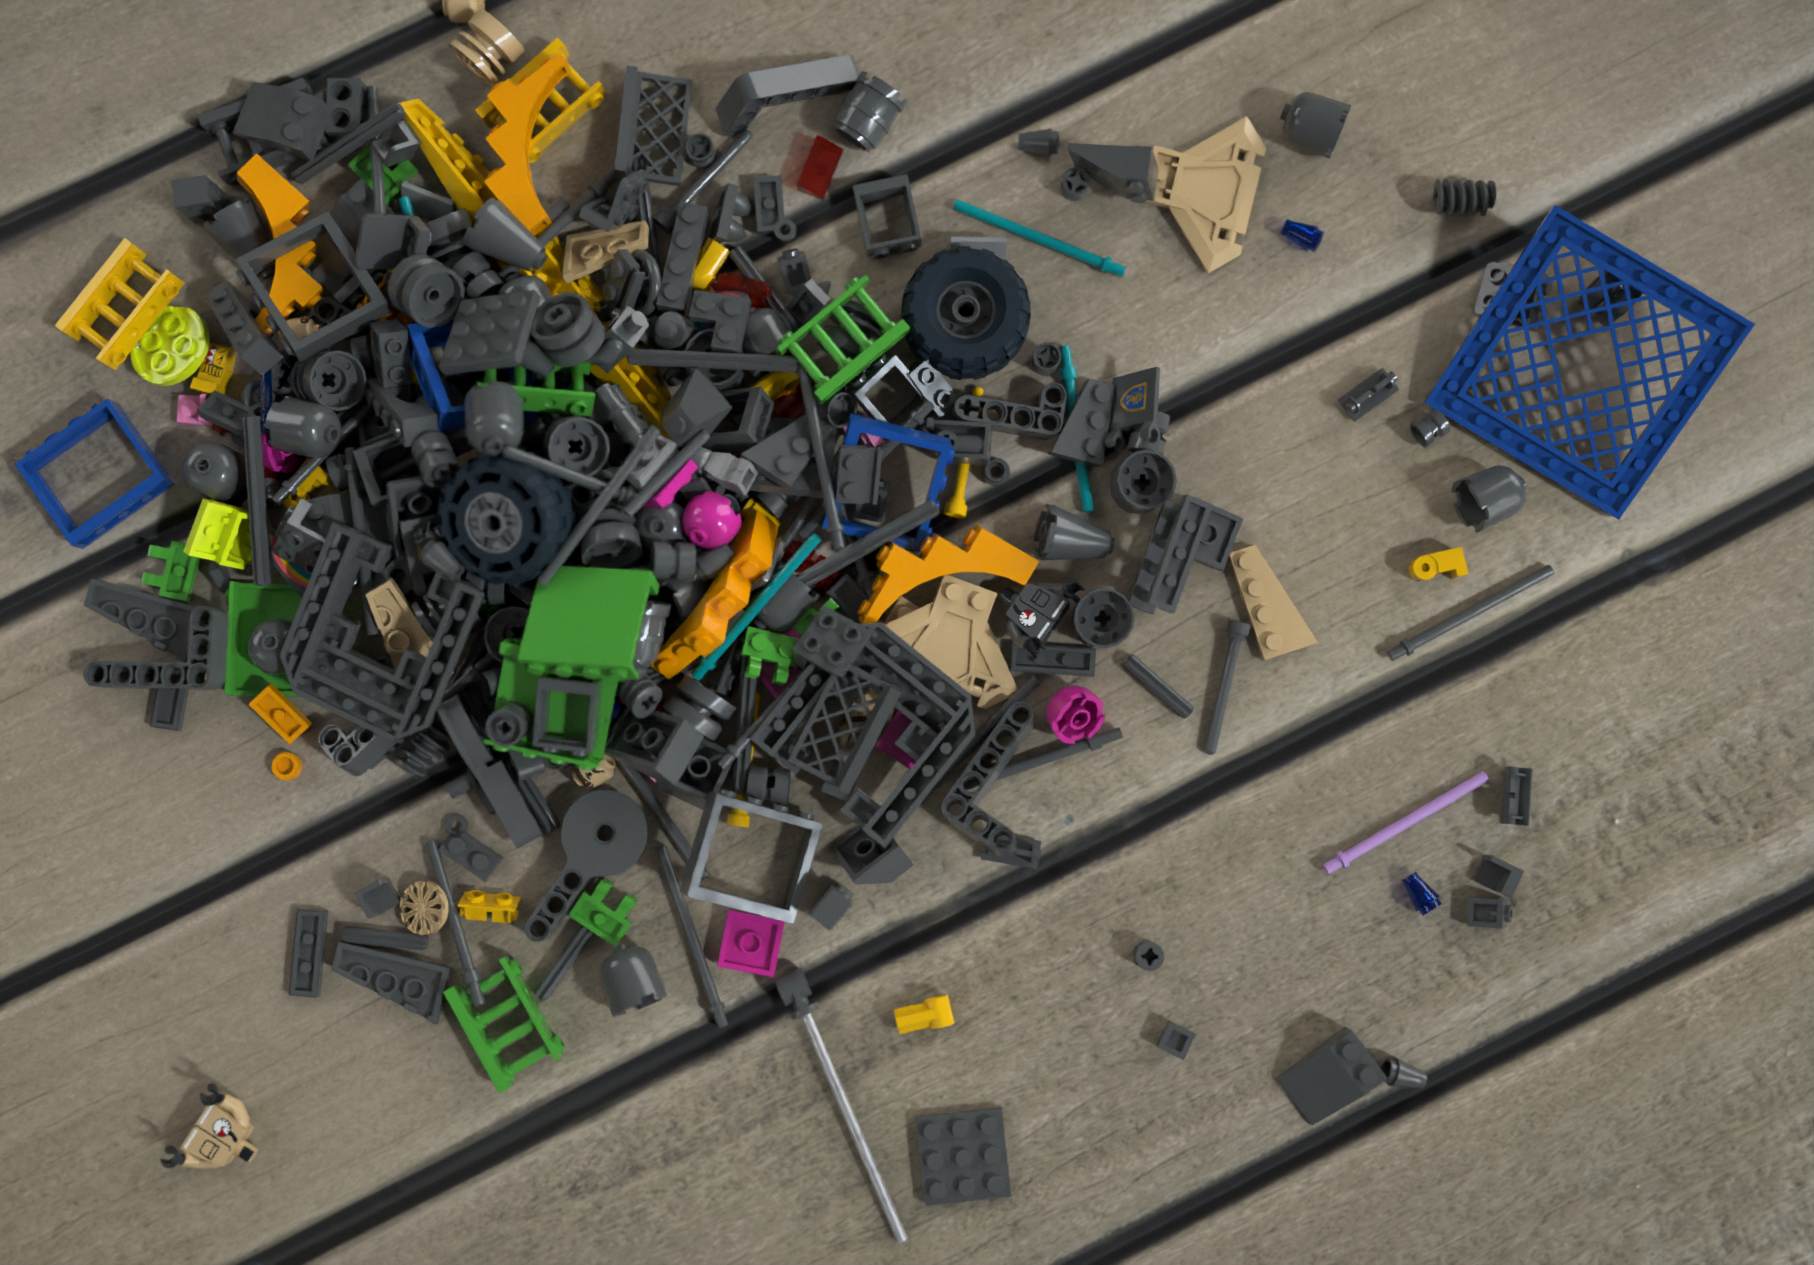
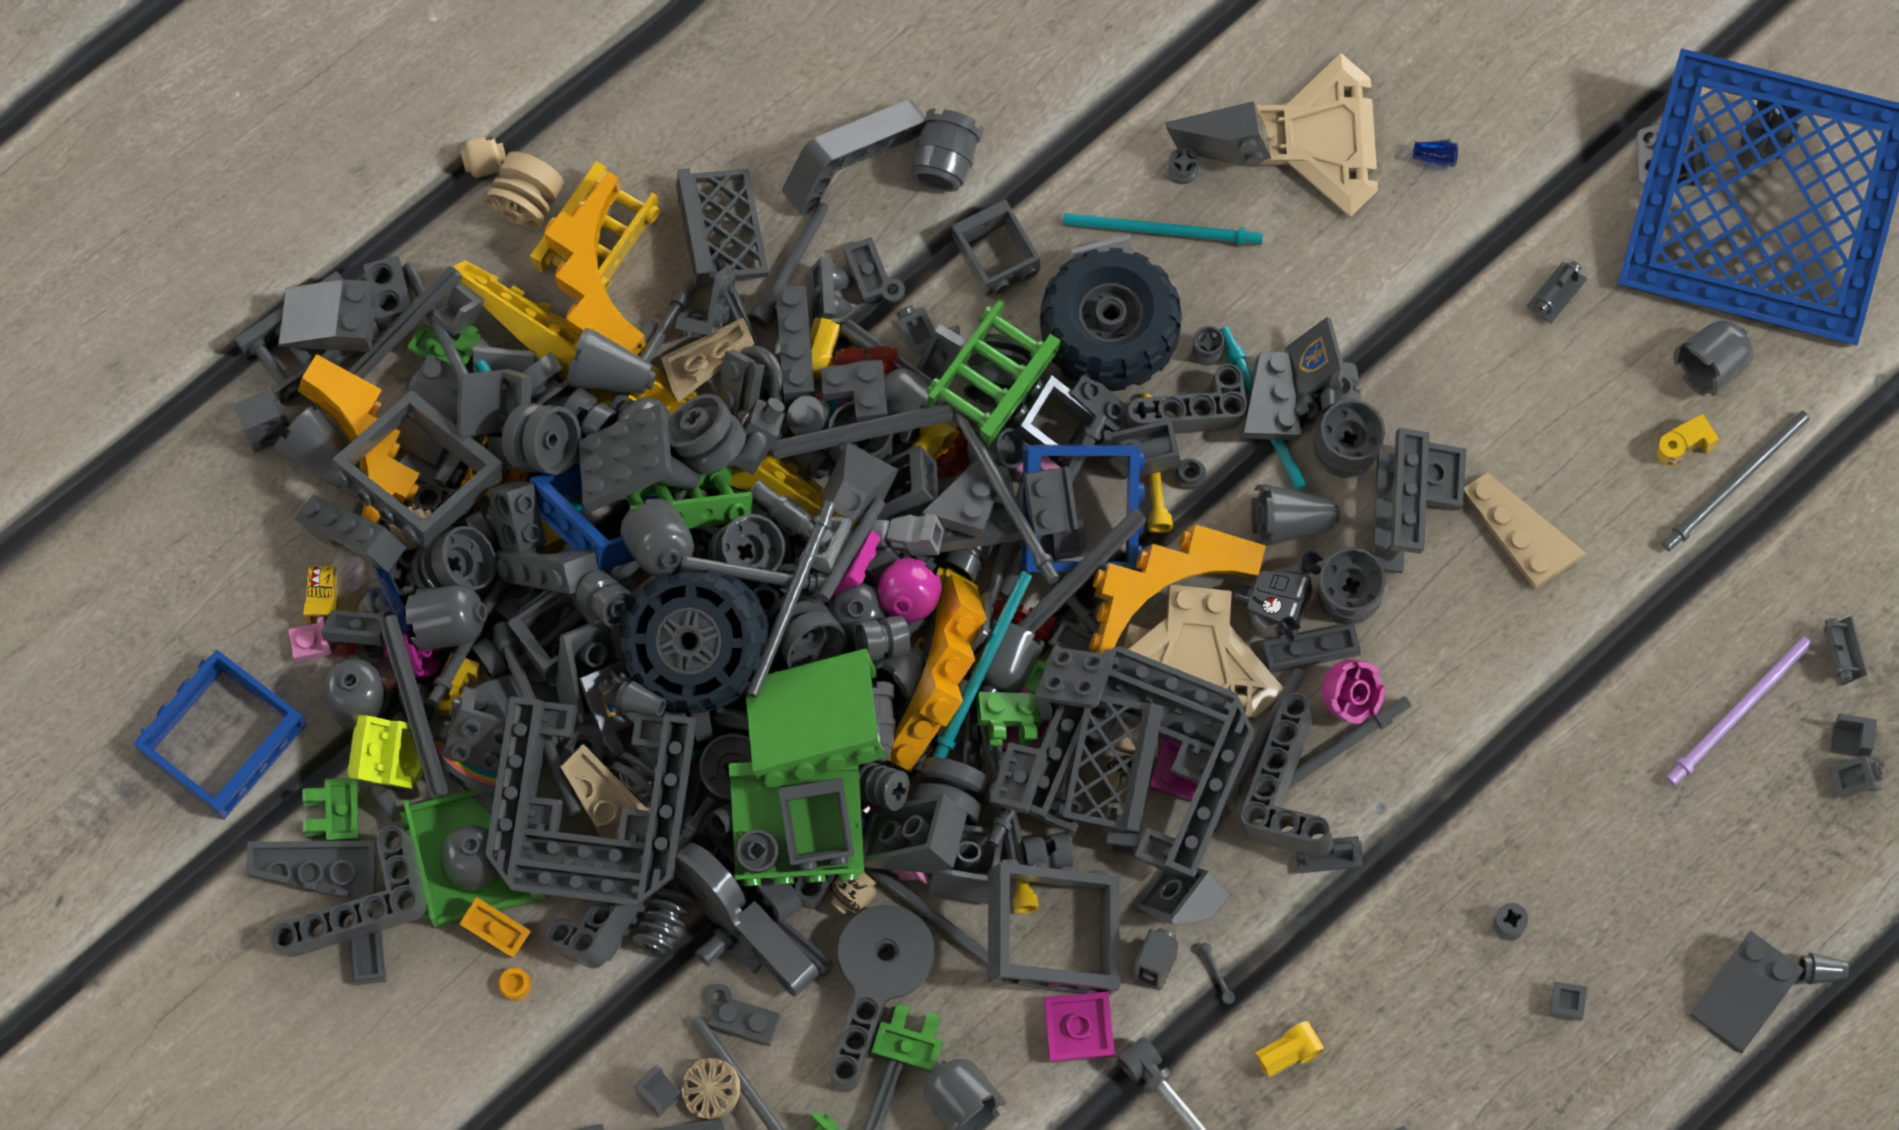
camera: 15 degrees left, 15 degrees down
(102, 289) = (181, 532): yellow fence -> none
(171, 347) = (267, 579): neon yellow tile -> none
(477, 903) = (794, 1065): yellow hinge -> none
(700, 145) = (777, 229): dark grey wheel -> none
(712, 561) = (924, 631): dark grey cone -> none
(716, 1006) = (1060, 1105): dark grey bar -> none
(756, 717) = (1017, 778): none -> dark grey bracket
(819, 168) = (909, 220): clear red slope -> none
(880, 904) = (1228, 997): none -> dark grey hinge
(1040, 142) = (1133, 134): dark grey cone -> none
(1158, 686) = (1432, 643): dark grey axle -> none
(1236, 633) = (1497, 564): dark grey piece -> none
(1314, 122) = (1412, 39): dark grey cylinder -> none
(1421, 894) = (1780, 779): clear blue cone -> none
(1430, 428) = (1631, 307): dark grey wheel -> none
(1463, 196) = (1590, 71): dark grey piece -> none

